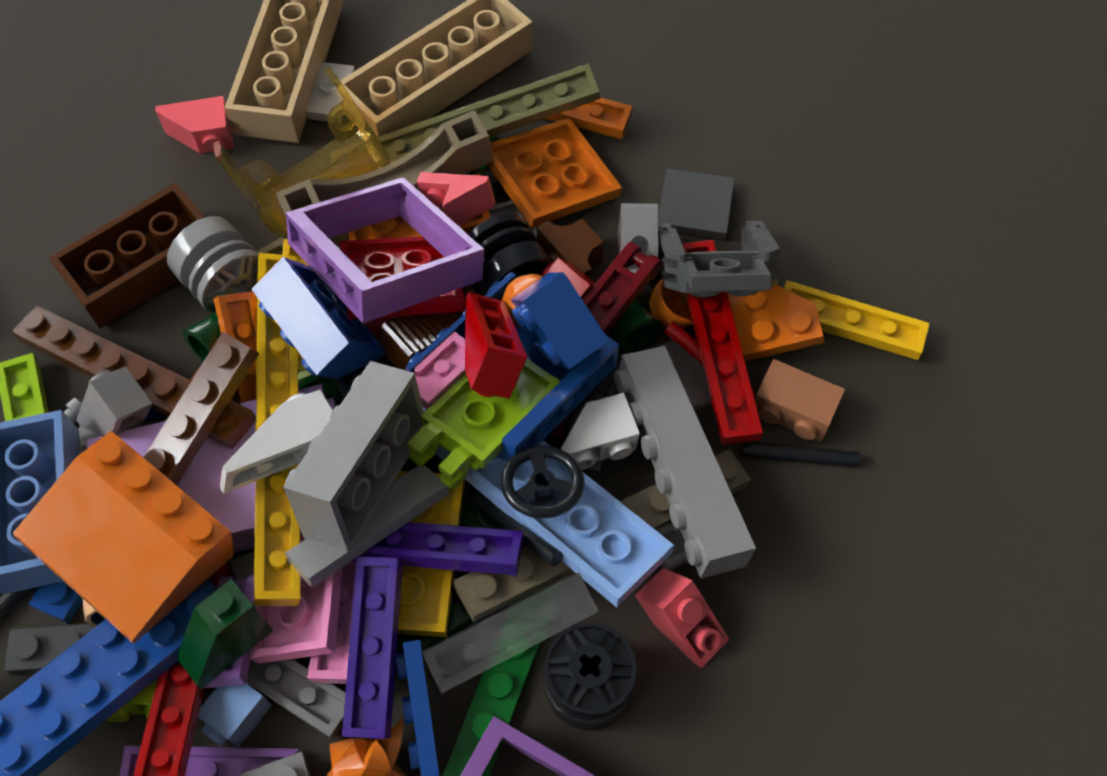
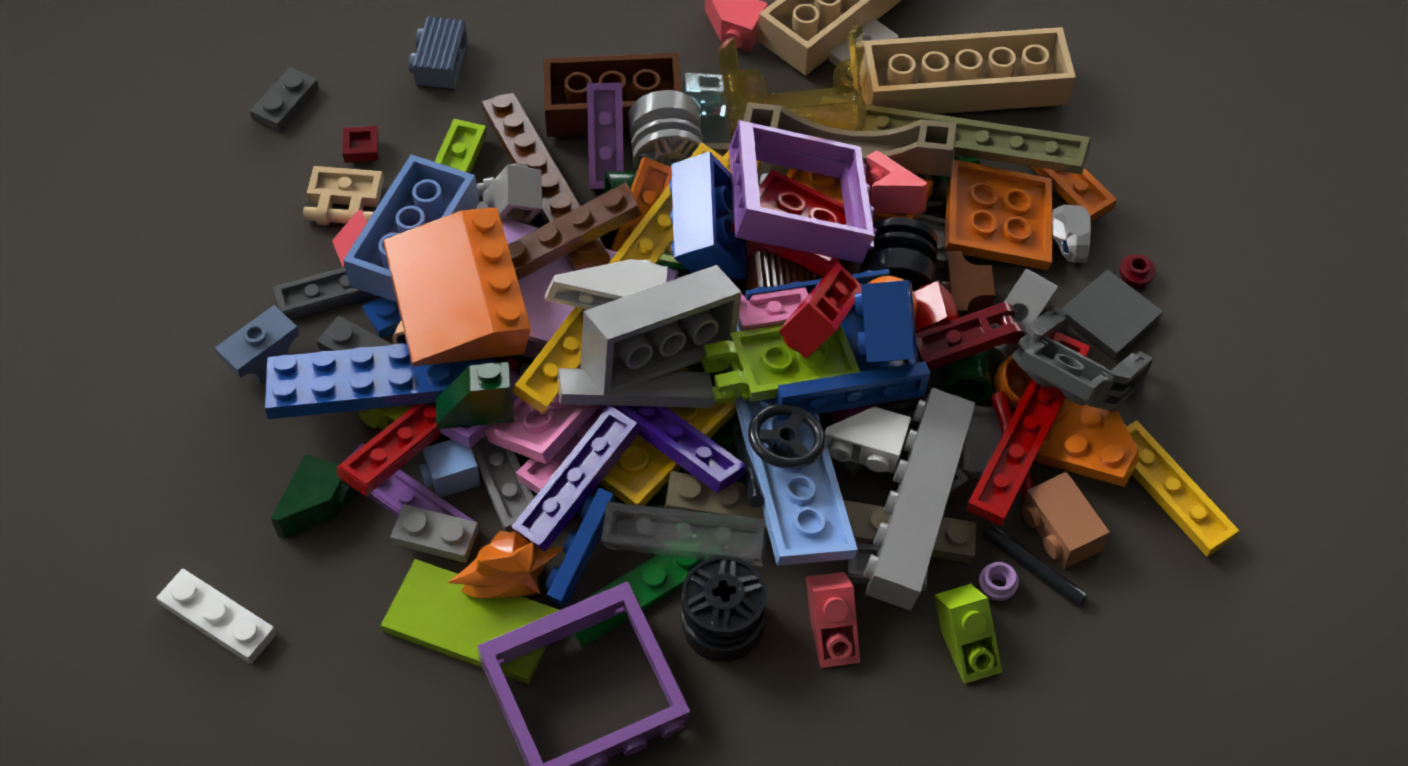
camera: 35 degrees right, 5 degrees down
(156, 293) = (604, 131): none -> medium lavender plate
(224, 201) = (706, 91): none -> clear light blue brick
(620, 153) = (1072, 232): none -> light grey rock
(688, 162) = (1134, 277): none -> dark red plate
(788, 479) = (1002, 572): none -> lavender plate
(798, 549) = (969, 632): none -> lime slope

